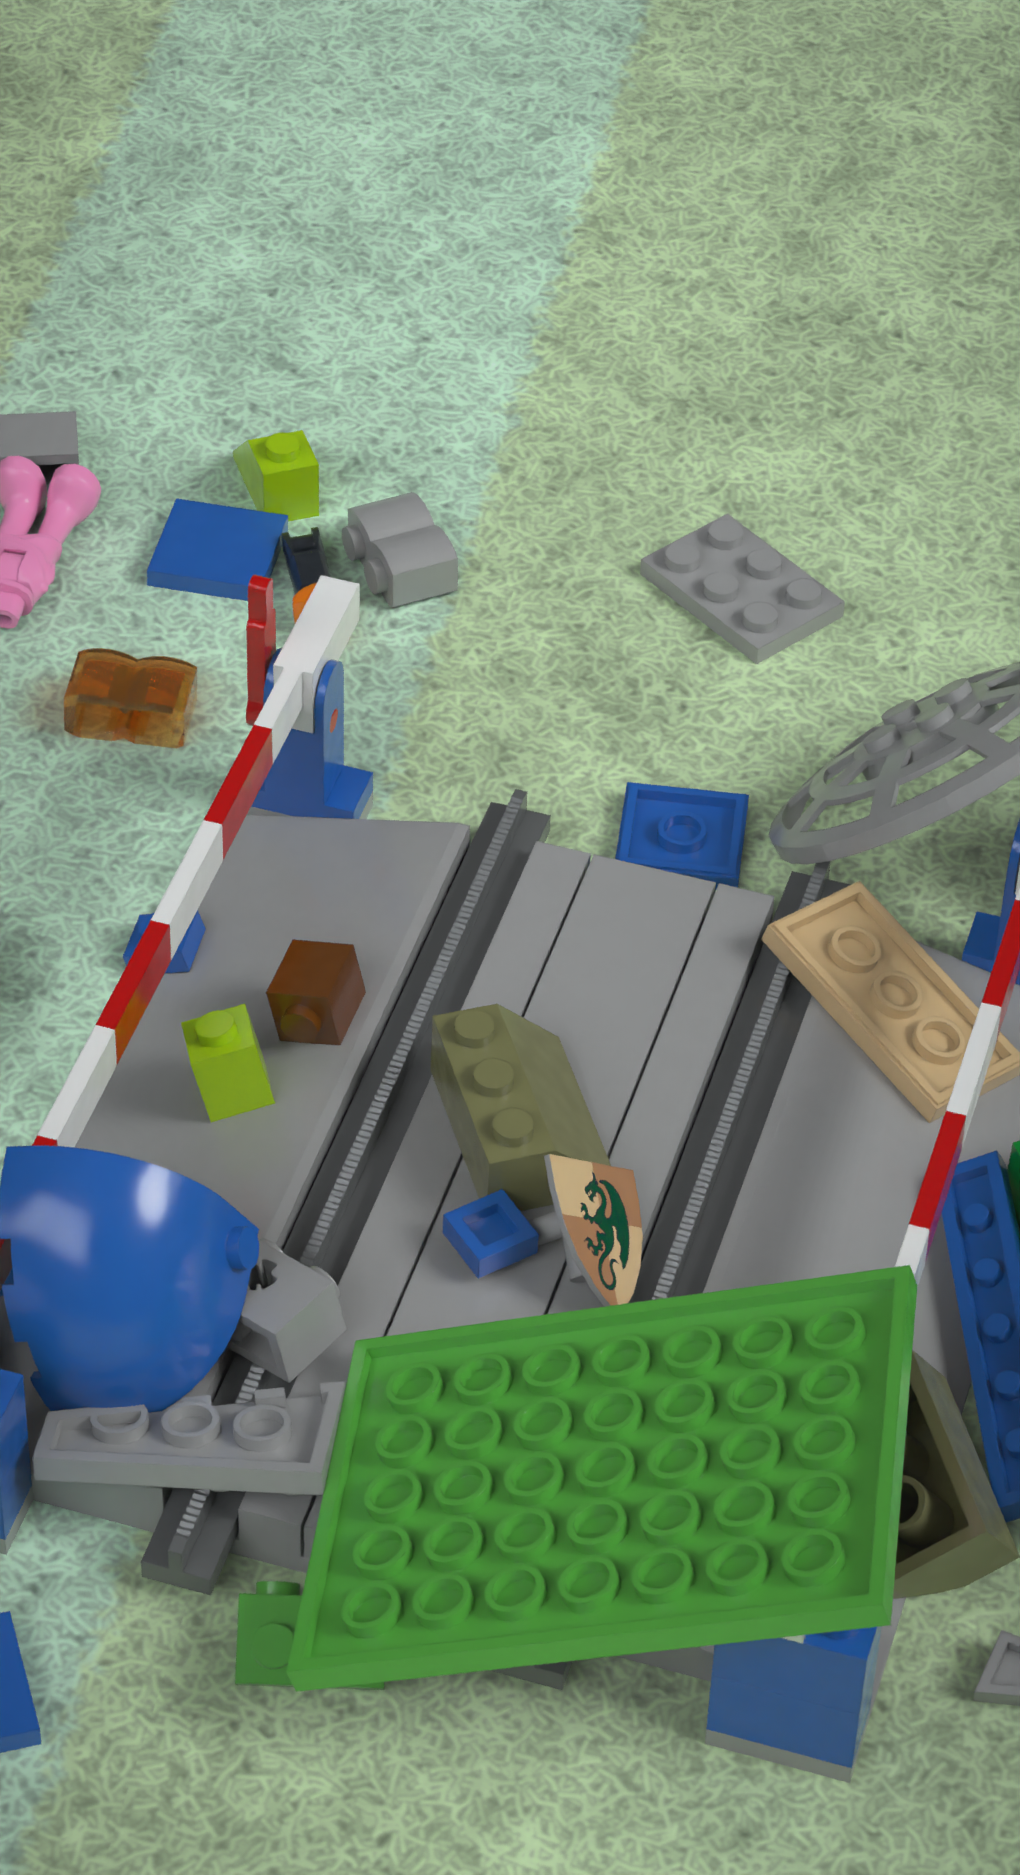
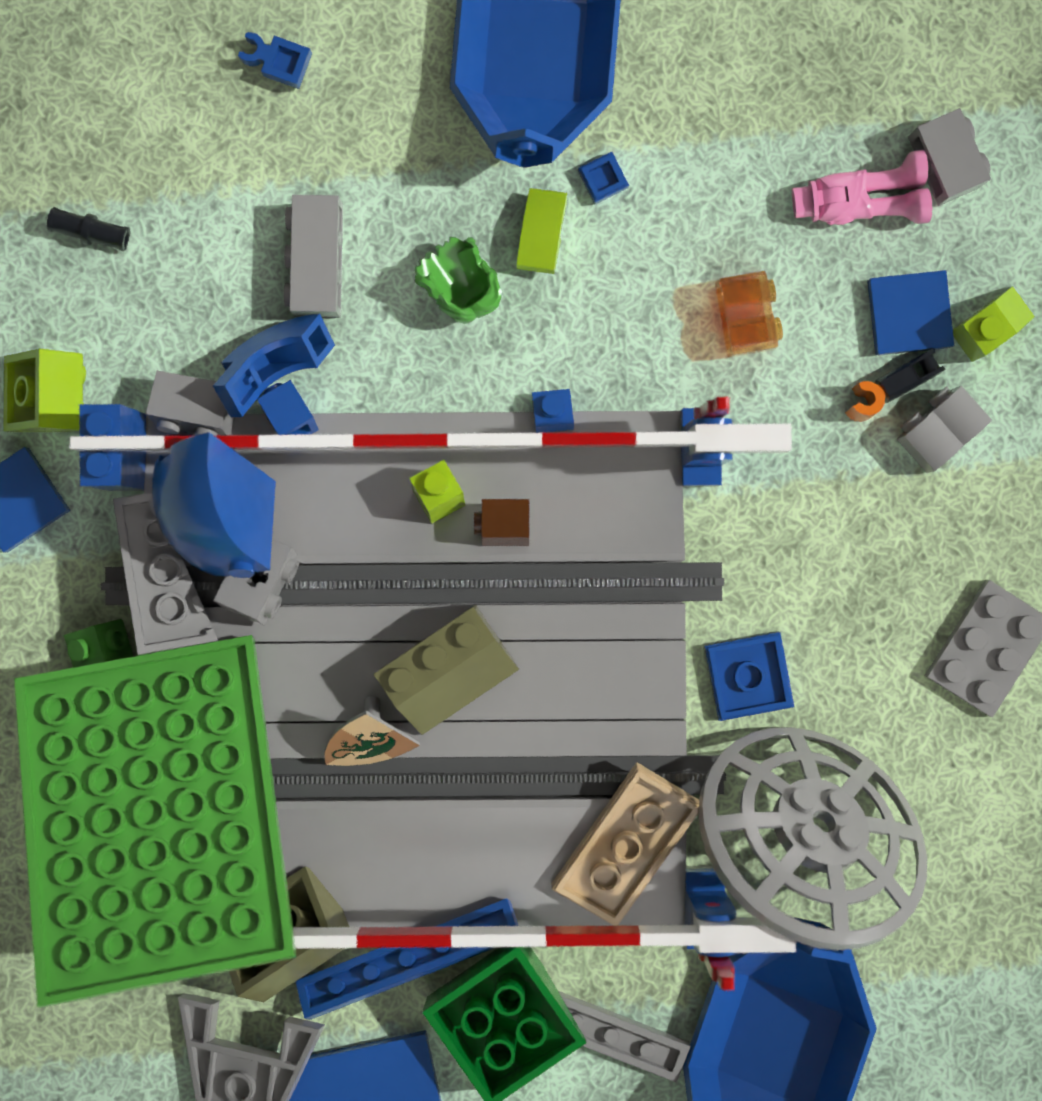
camera: 70 degrees right, 45 degrees up
(490, 1233) = (353, 680): blue plate -> none

